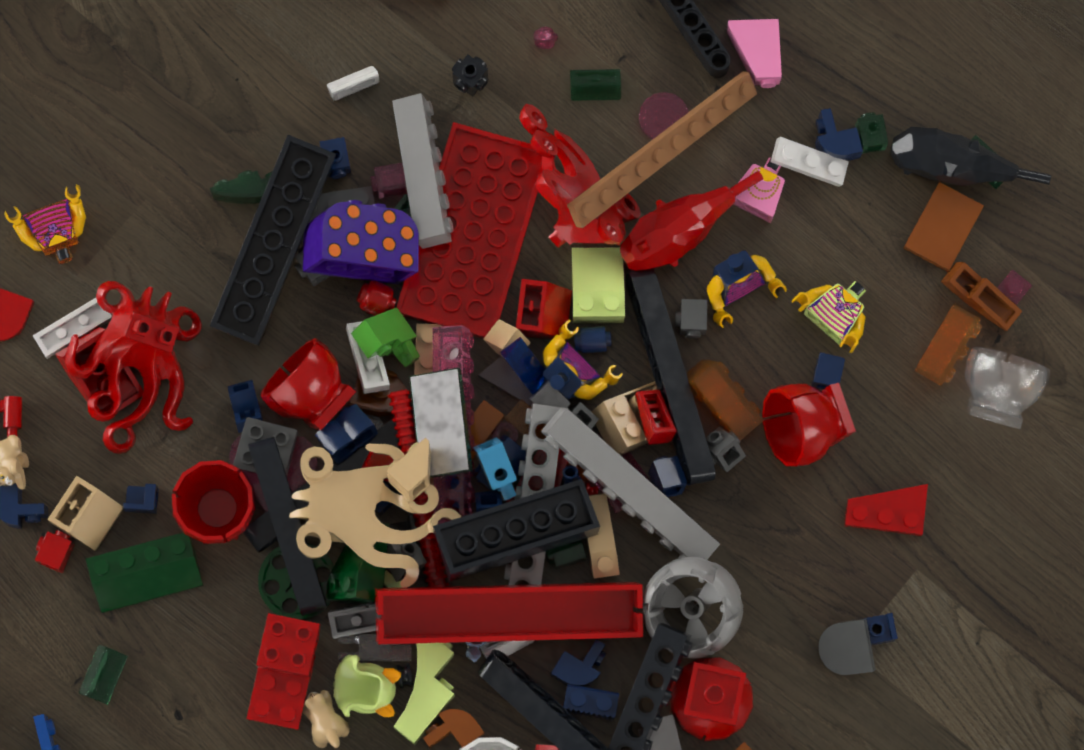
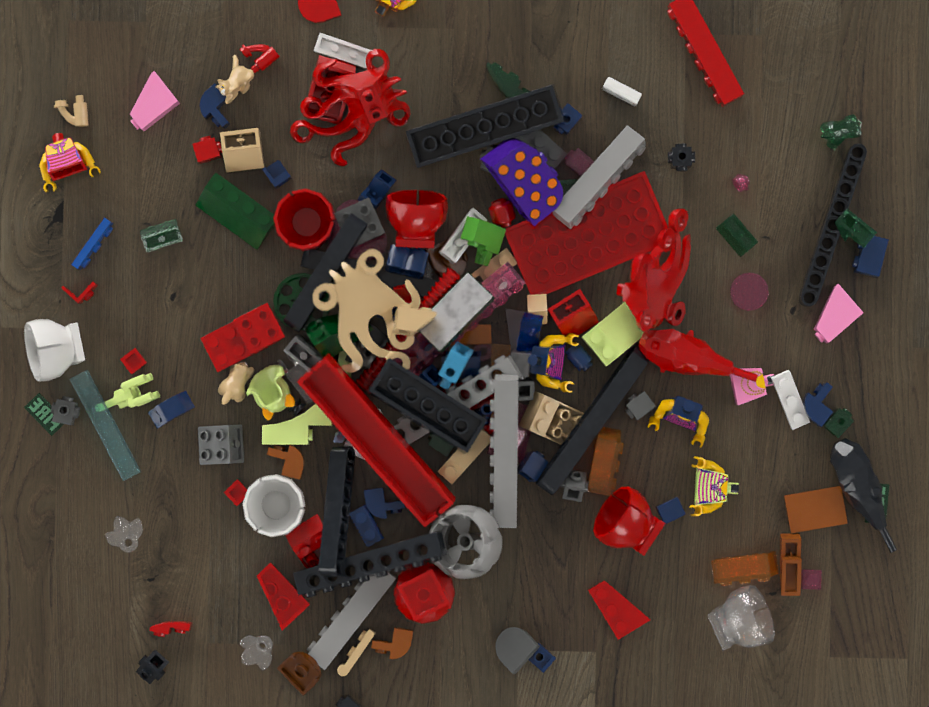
camera: 60 degrees right, 10 degrees up
(655, 432) = (551, 438): red slope -> none
(661, 149) = (723, 309): medium nougat plate -> none

